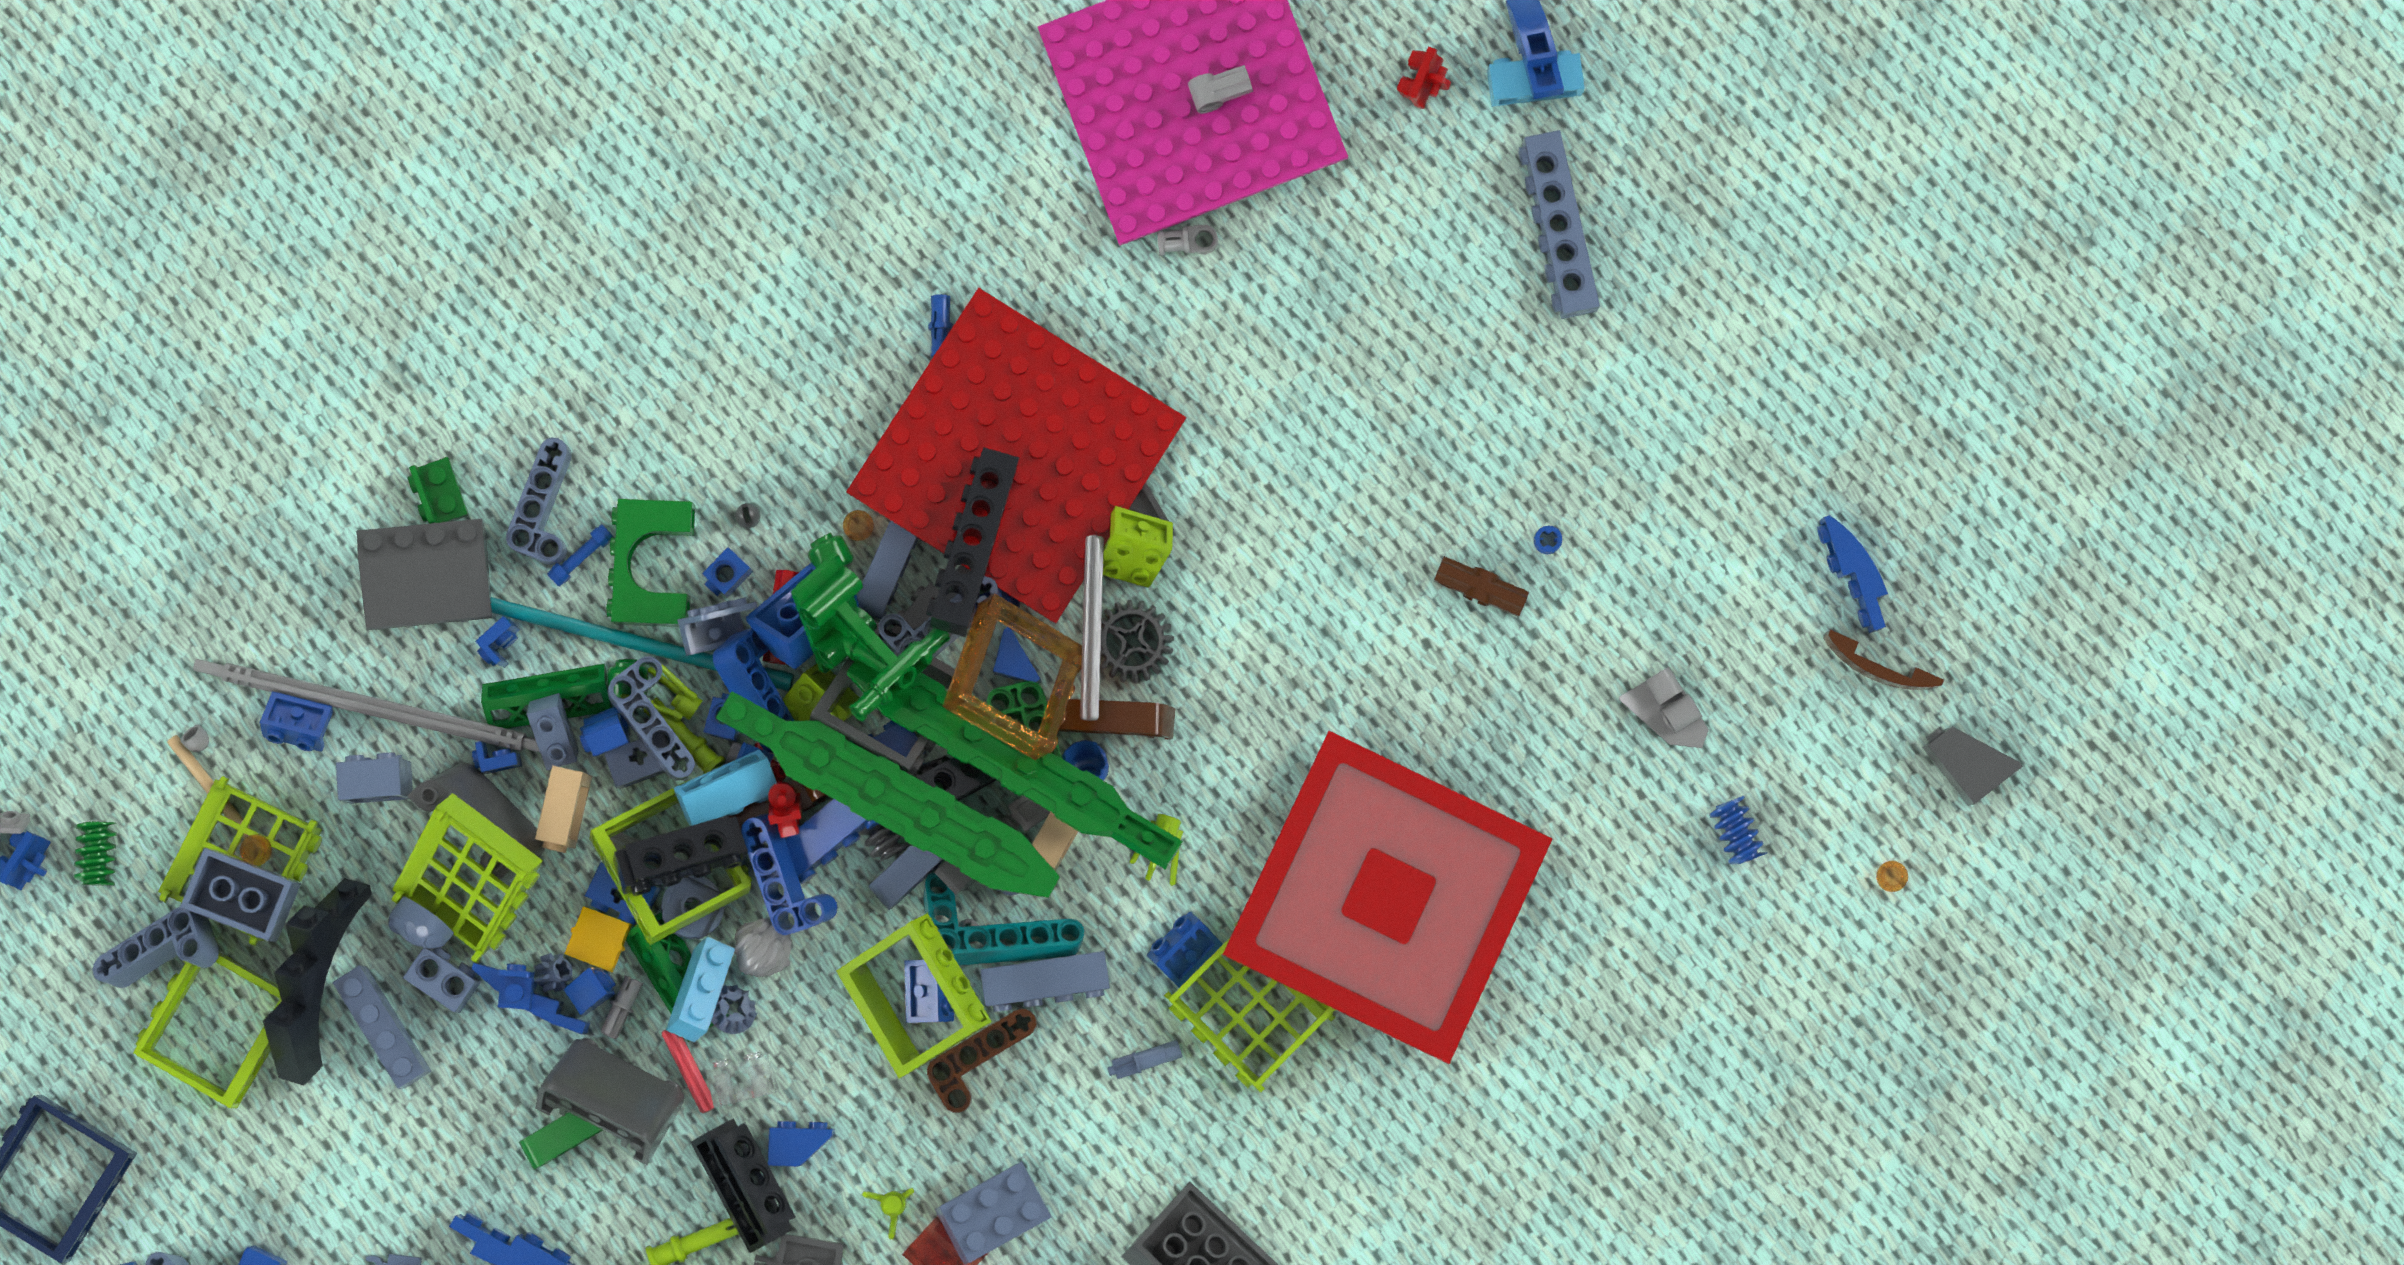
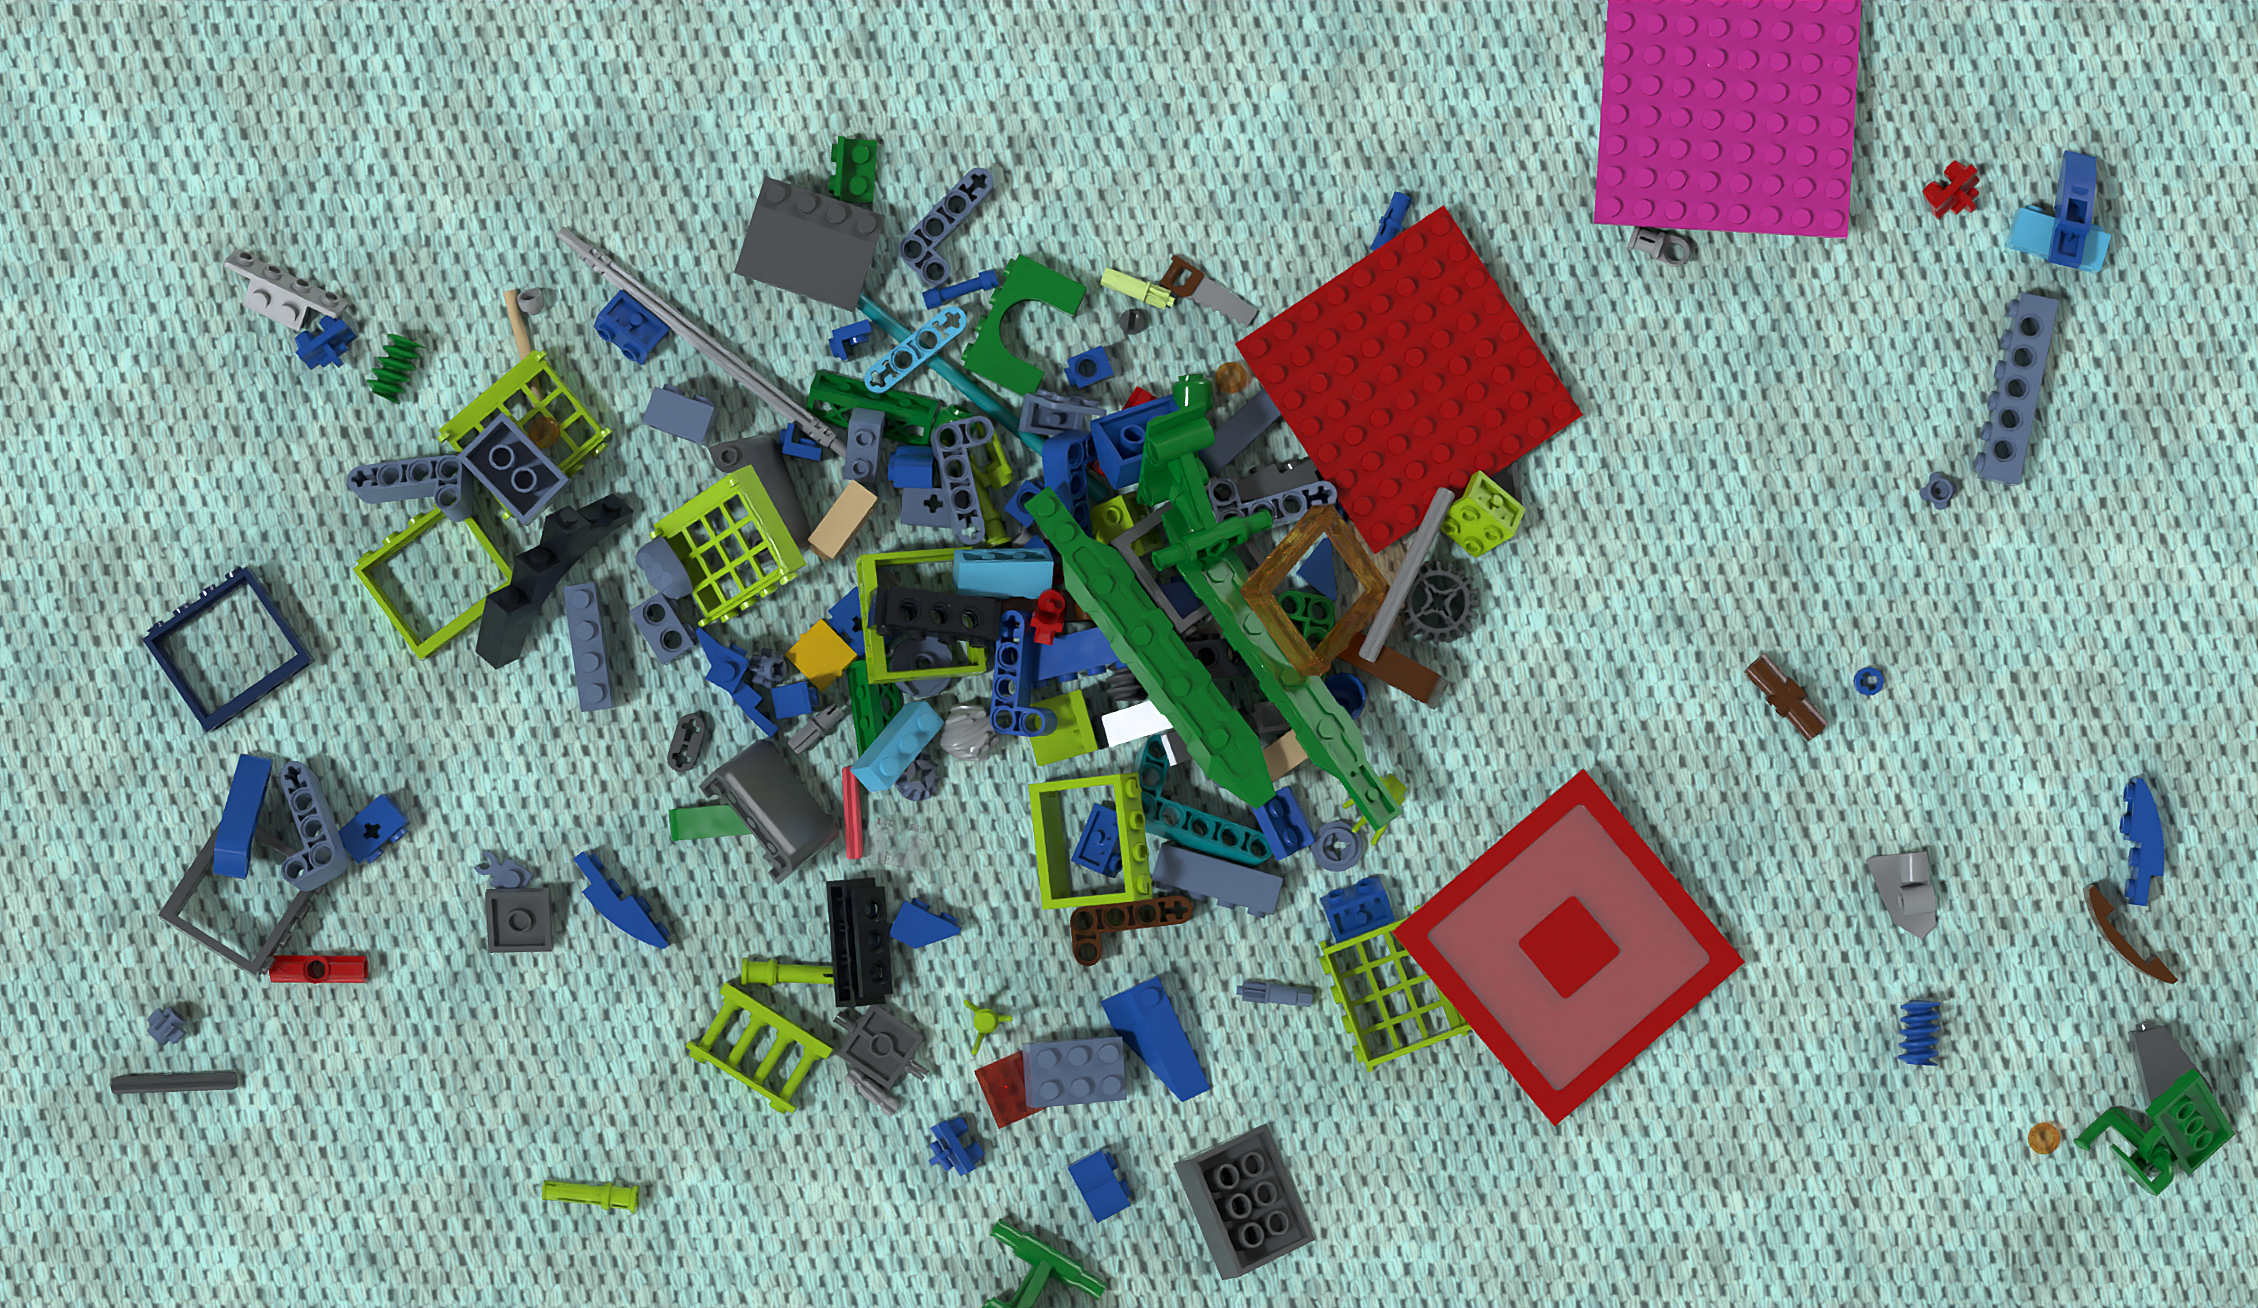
camera: 25 degrees right, 5 degrees up
(517, 1073) = (679, 740): none -> dark grey beam
(566, 628) = (918, 354): none -> medium azure beam
(737, 484) = (1137, 288): none -> yellowish green piece
(803, 459) = (1207, 292): none -> light grey piece
(855, 906) = (1073, 732): none -> lime bracket
(957, 616) = (1389, 390): black brick -> none
(1051, 1145) = (1155, 1034): none -> blue wedge
(1082, 901) = (1284, 824): none -> blue bracket
(1138, 916) = (1349, 854): none -> sand blue gear
(1212, 90) = (1747, 117): light grey piece -> none
(1538, 339) = (1947, 490): none -> sand blue plate
(2013, 813) = (2184, 1132): none -> green plate

